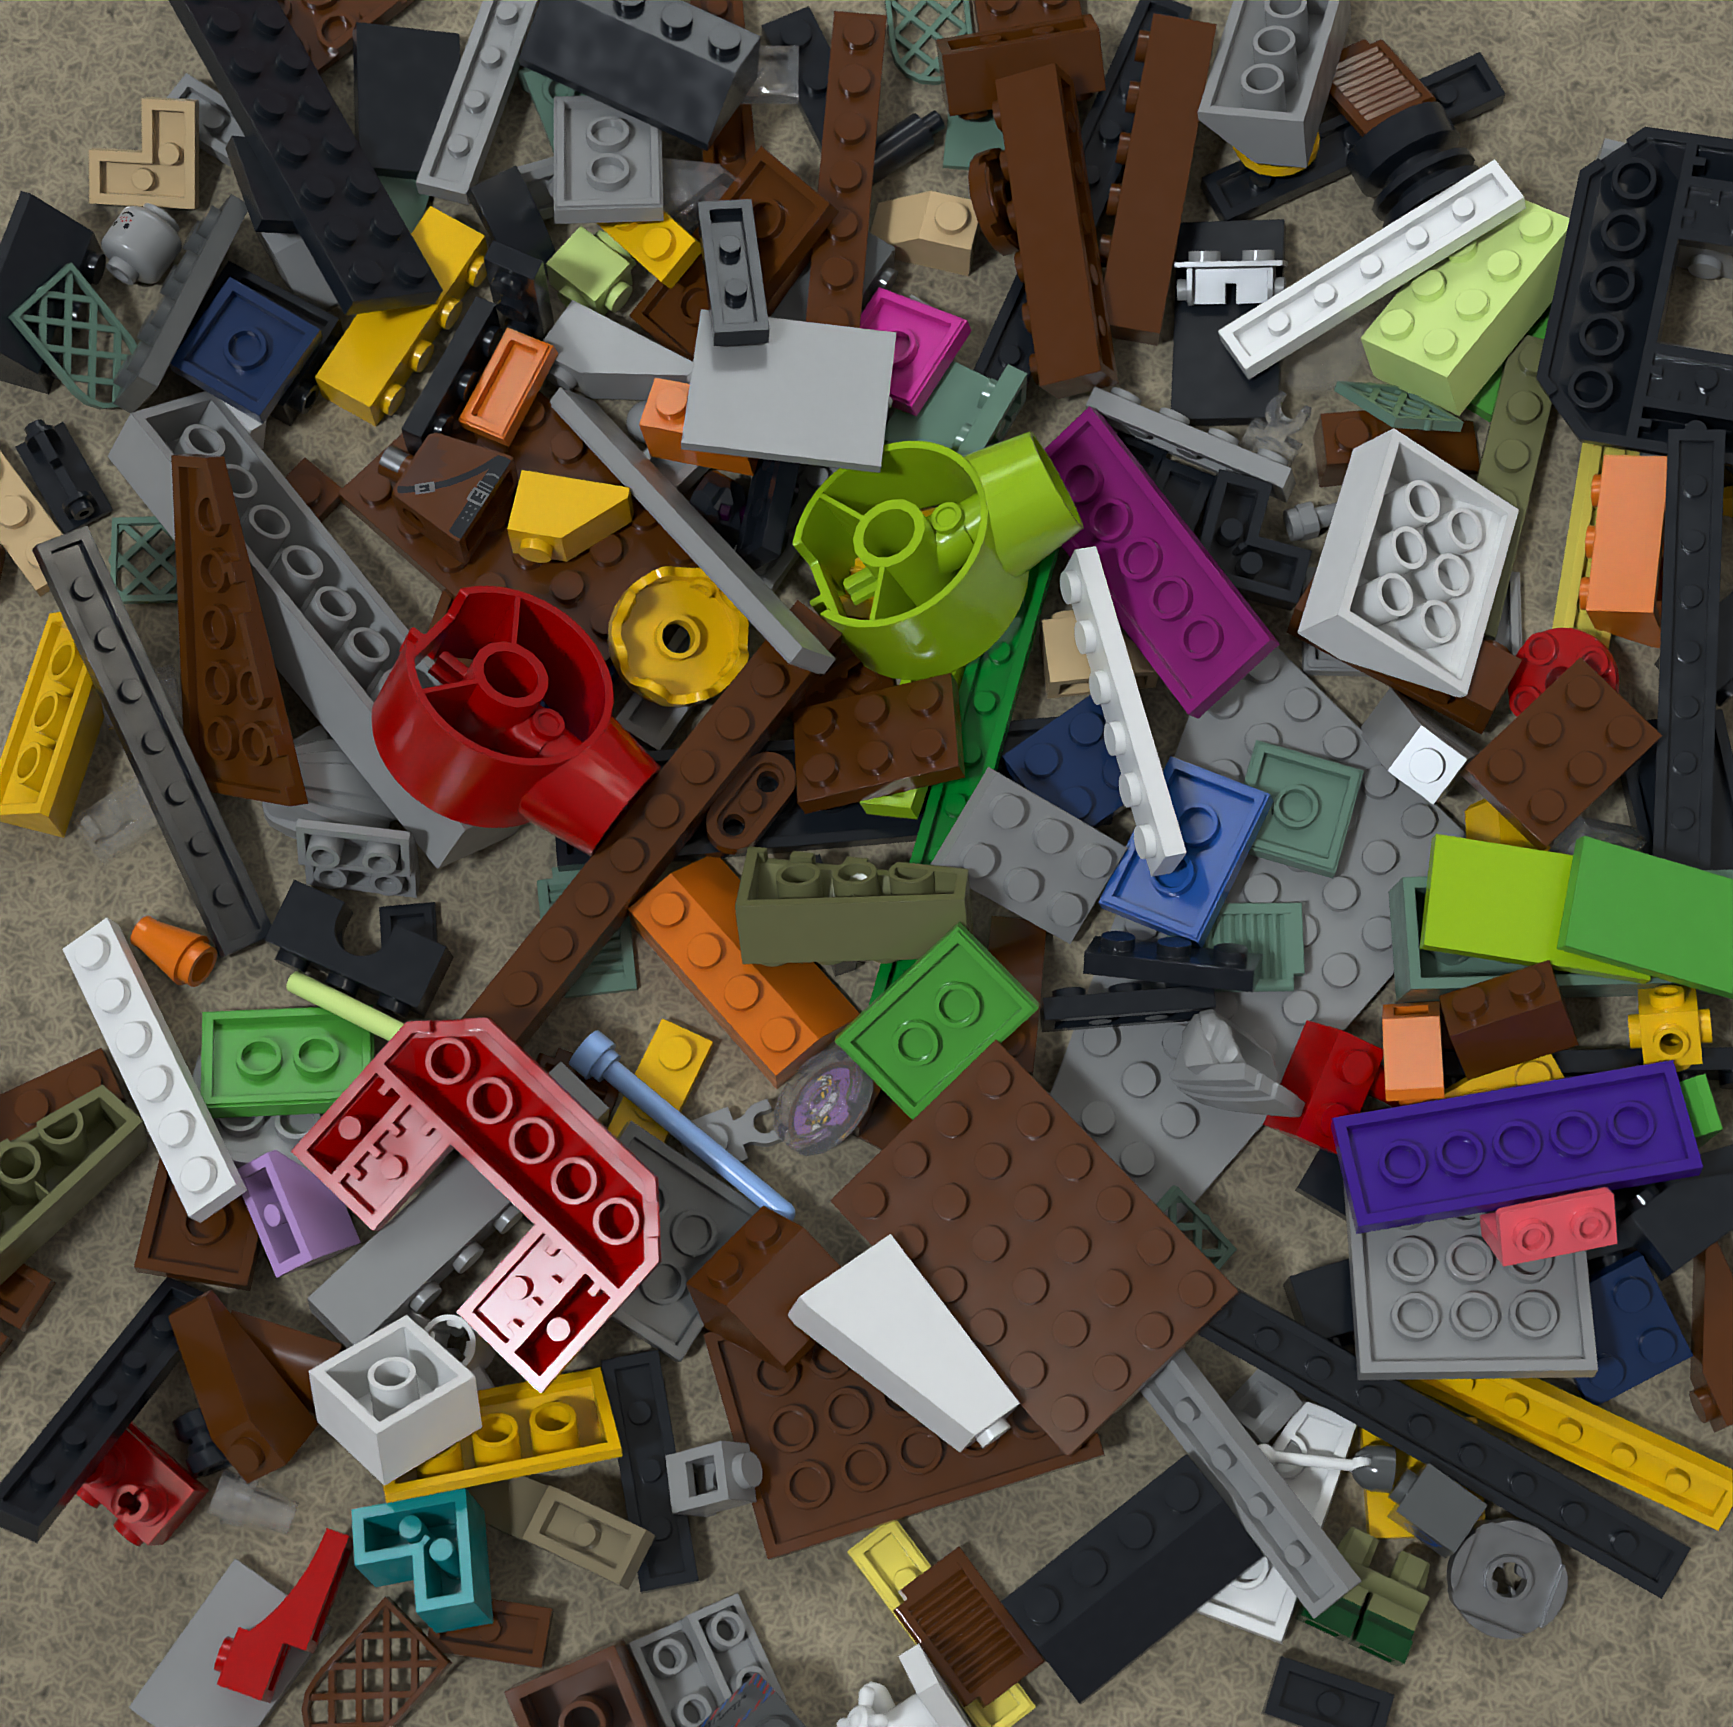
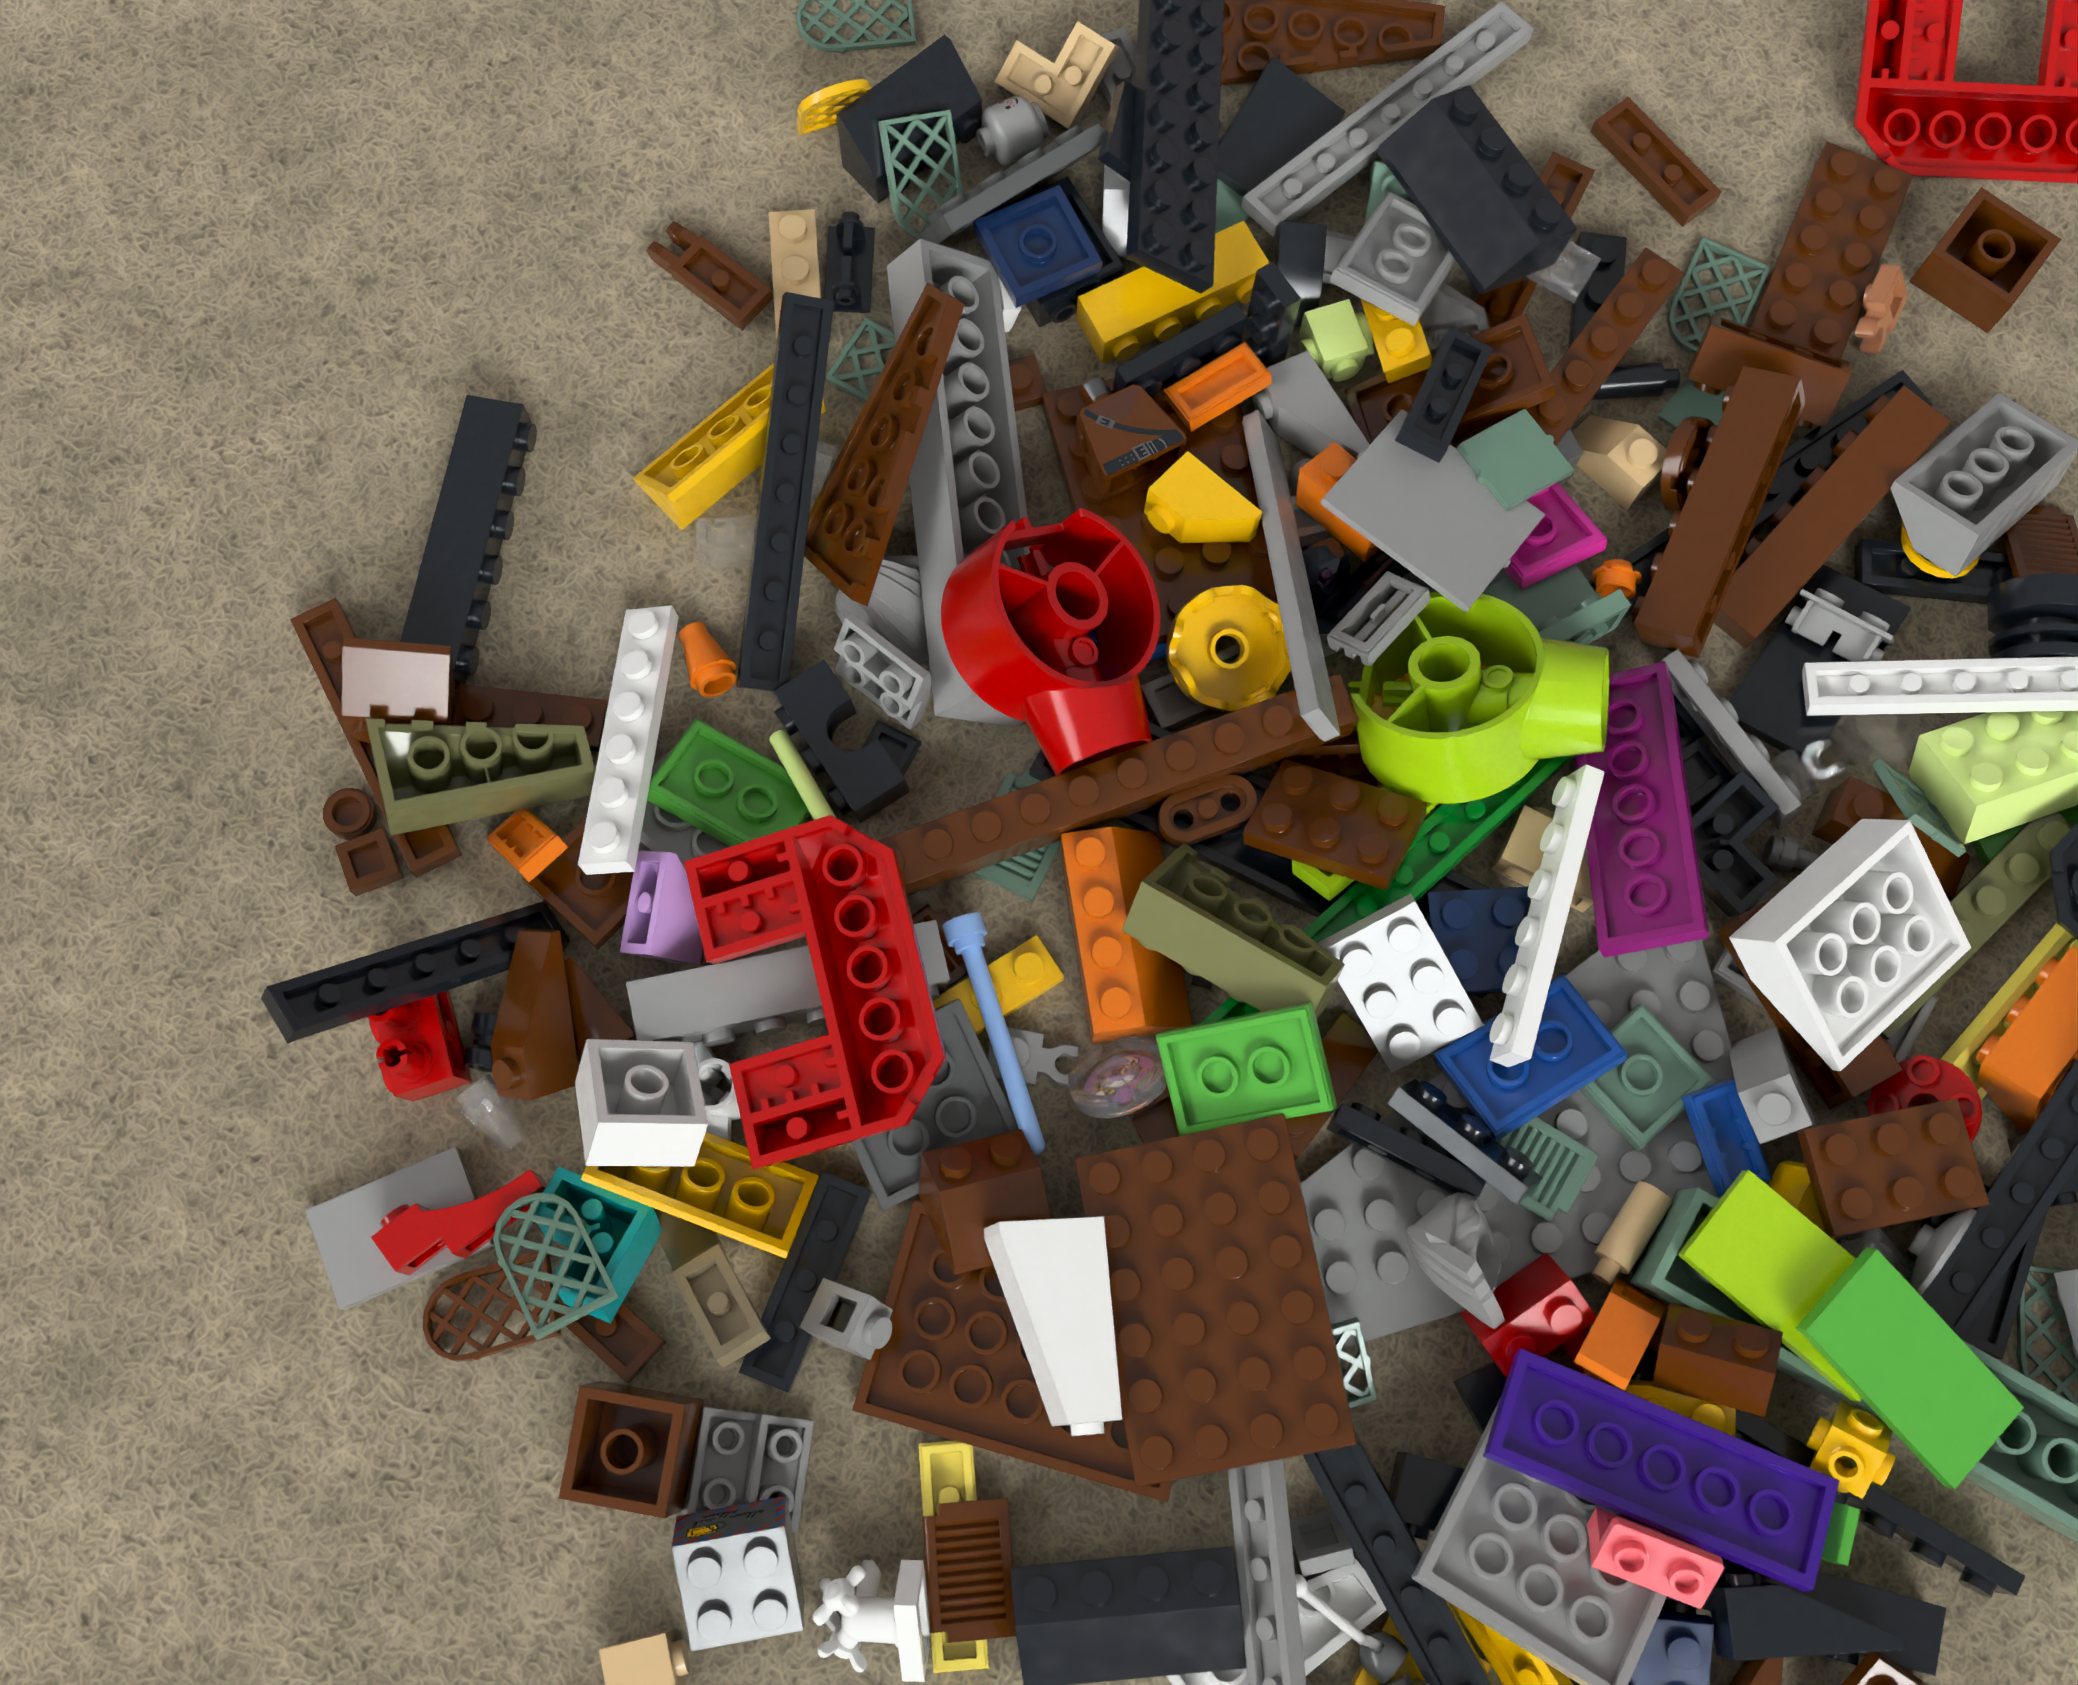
camera: 30 degrees right, 0 degrees up
(117, 1231) = (526, 843): none -> orange plate
(461, 1622) = (578, 1311): none -> sand green window
(811, 525) = (1386, 620): none -> light grey tile
(836, 295) = (1515, 459): none -> sand green piece
(997, 351) = (1616, 575): none -> orange plate
(1369, 955) = (1630, 1231): none -> tan cylinder
(1399, 814) = (1724, 1134): none -> blue plate
(1637, 802) = (1935, 1247): none -> light grey dish

